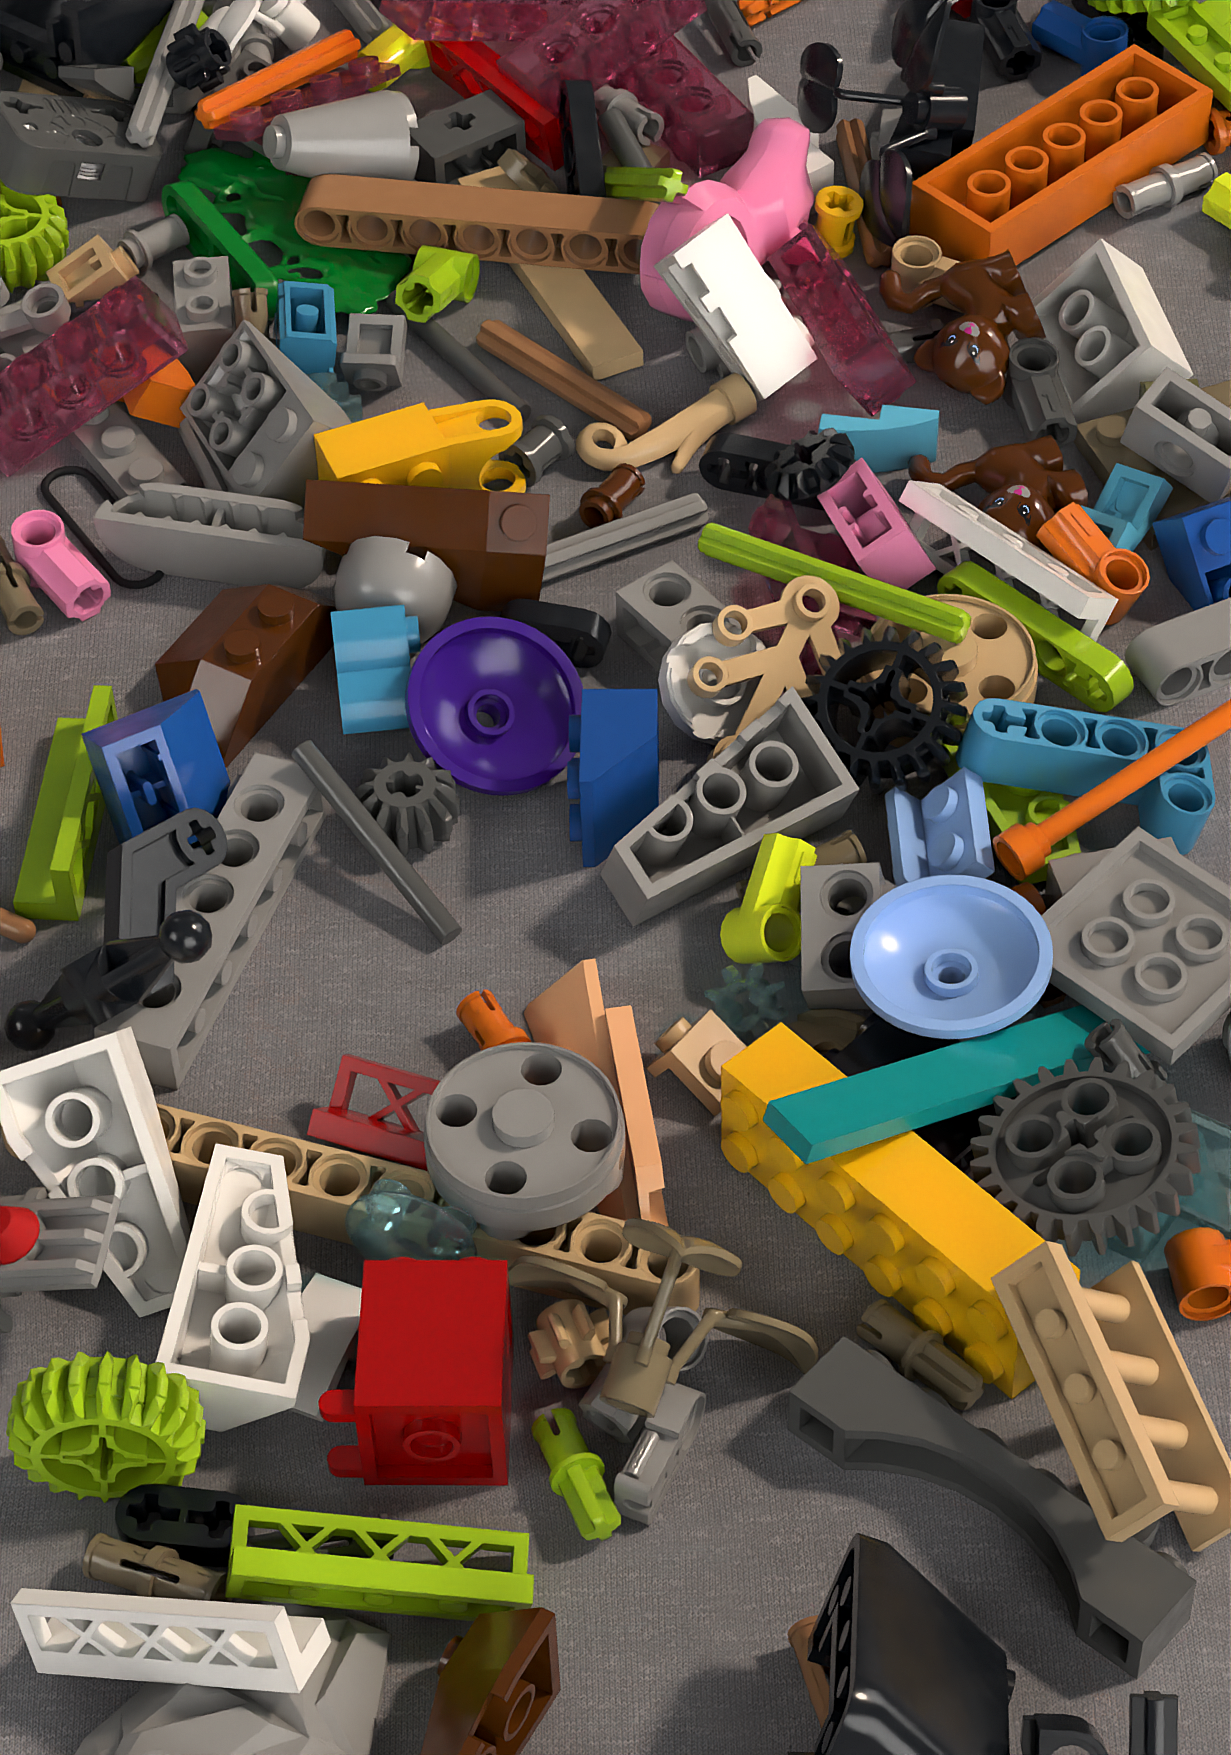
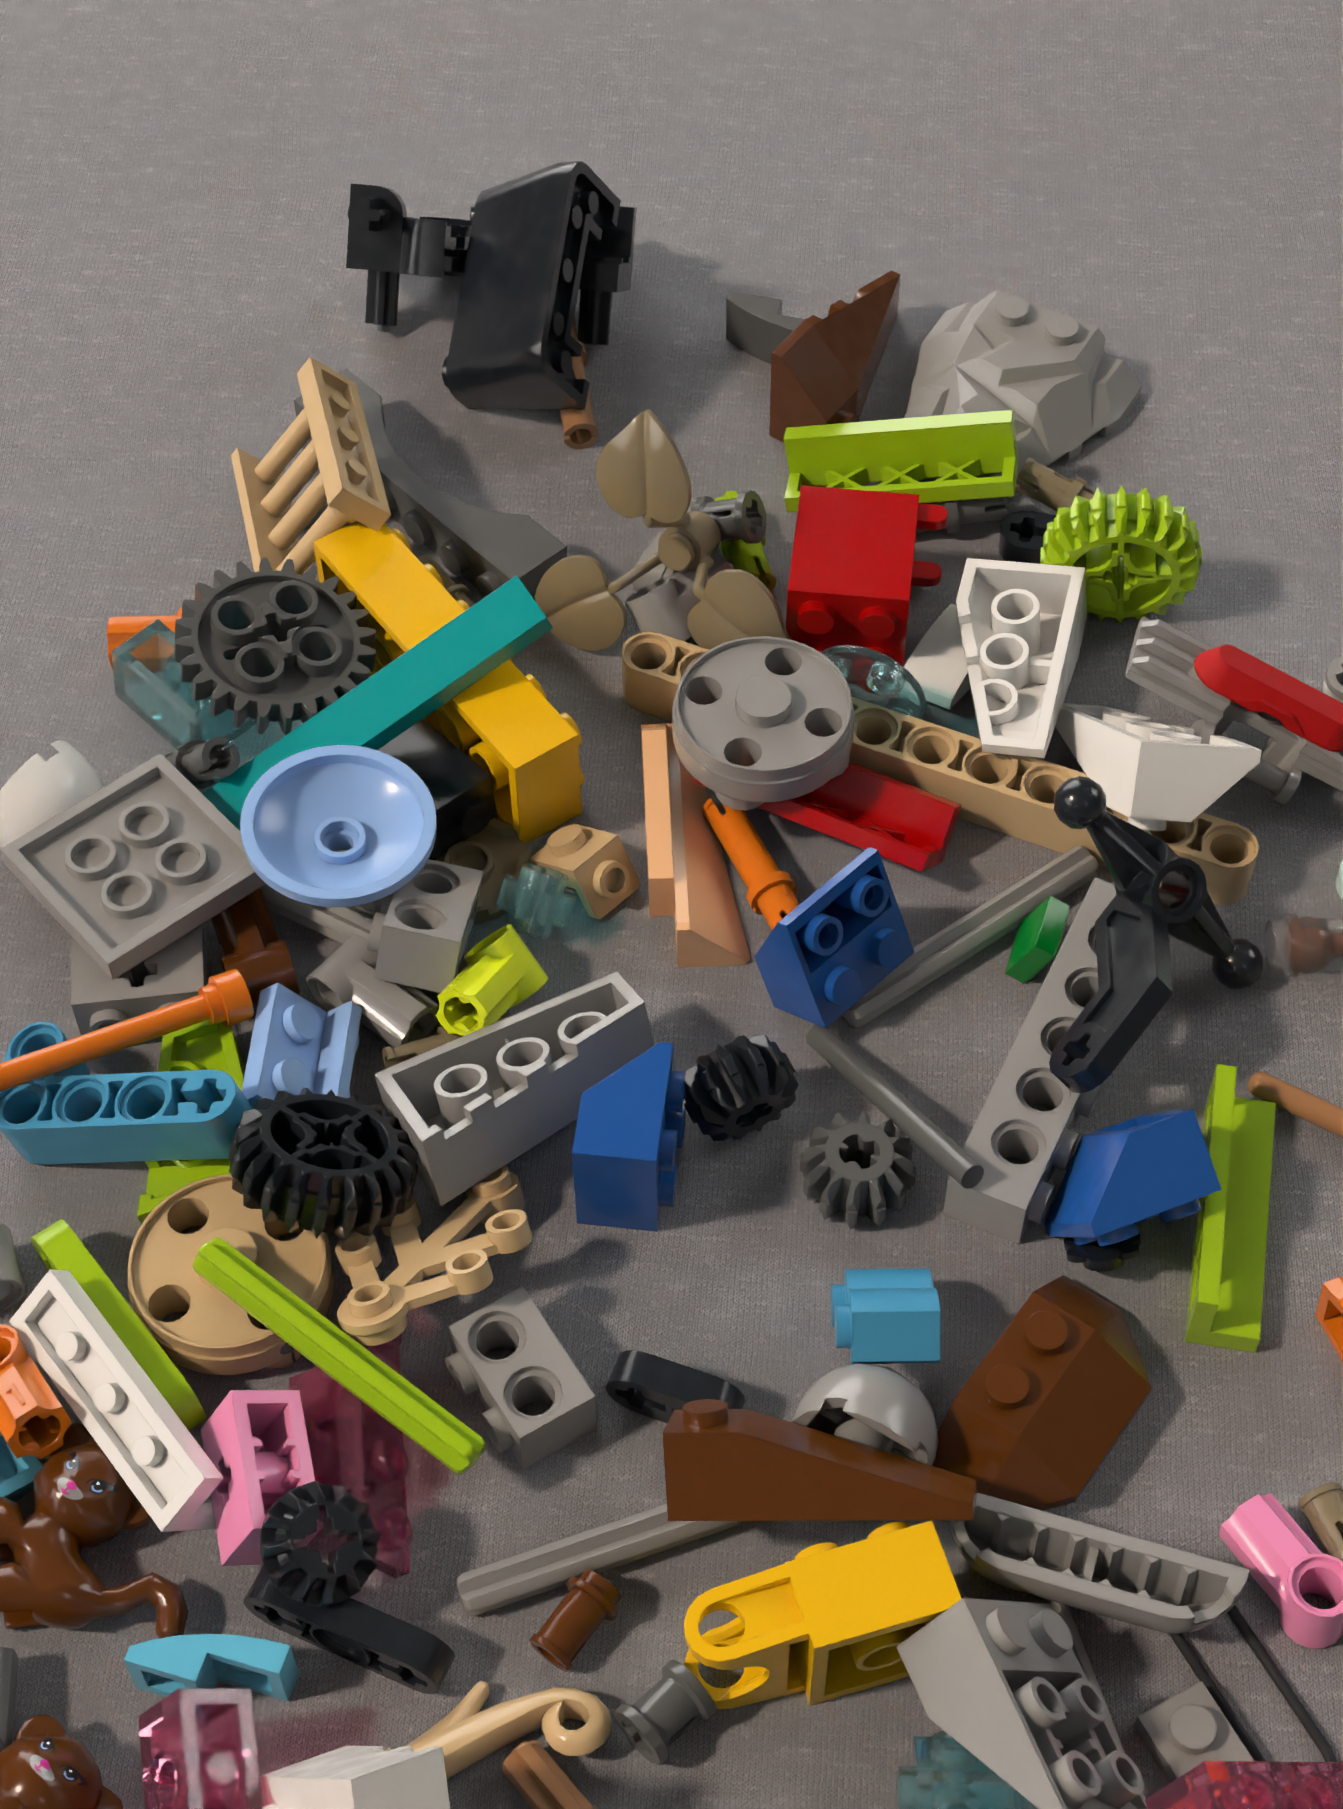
camera: 175 degrees left, 5 degrees up
(170, 1640) = (1056, 416): white fence -> none
(231, 1019) = (1037, 940): none -> green tile
(308, 1032) = (975, 932): none -> light grey axle
(438, 958) = (836, 943): none -> blue slope
(512, 677) = (752, 1254): dark purple dish -> none
(519, 838) = (739, 1087): none -> black gear
(592, 1429) = (736, 517): none -> dark grey bush
(699, 717) = (513, 1276): white tile -> none

